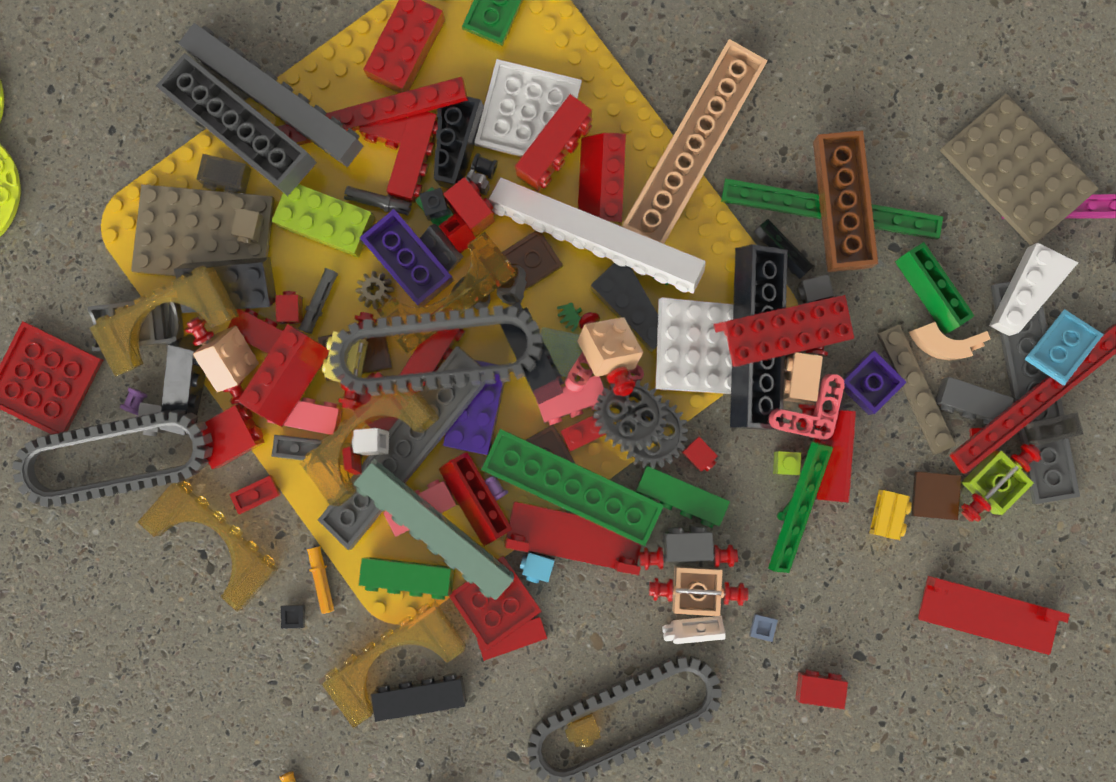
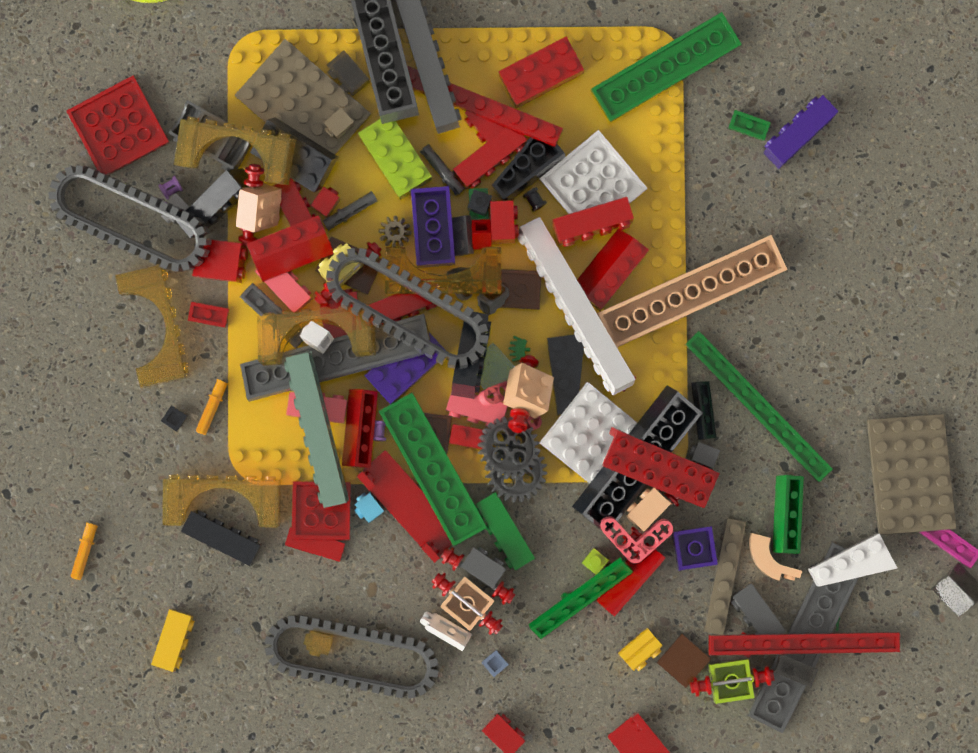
camera: 30 degrees right, 0 degrees up
(351, 461) = (294, 340): red tile -> none
(406, 576) = (273, 447): green brick -> none
(480, 180) = (523, 208): light grey plate -> none
(700, 454) = (538, 512): red brick -> none
(845, 201) = (768, 408): dark orange brick -> none
(1064, 347) = (847, 620): medium azure tile -> none

